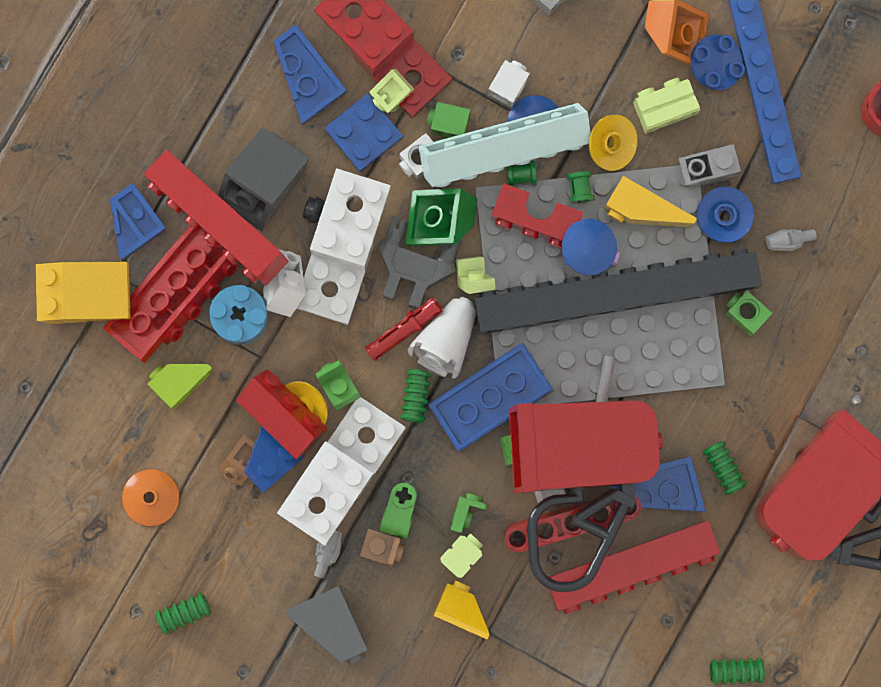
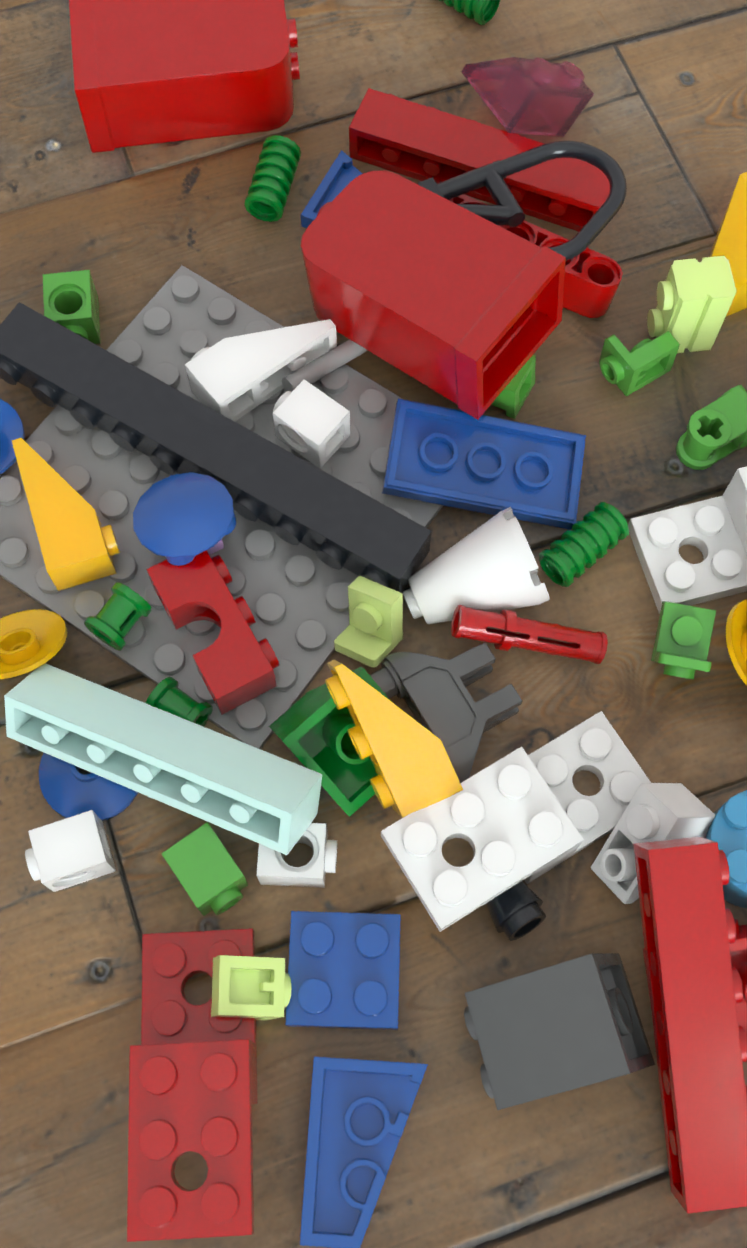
camera: 135 degrees left, 15 degrees down
(412, 225) = (406, 755): none -> yellow slope
(582, 345) = (311, 423): none -> white brick
(634, 344) = (250, 367): none -> white slope
(643, 621) = (531, 93): none -> clear pink slope

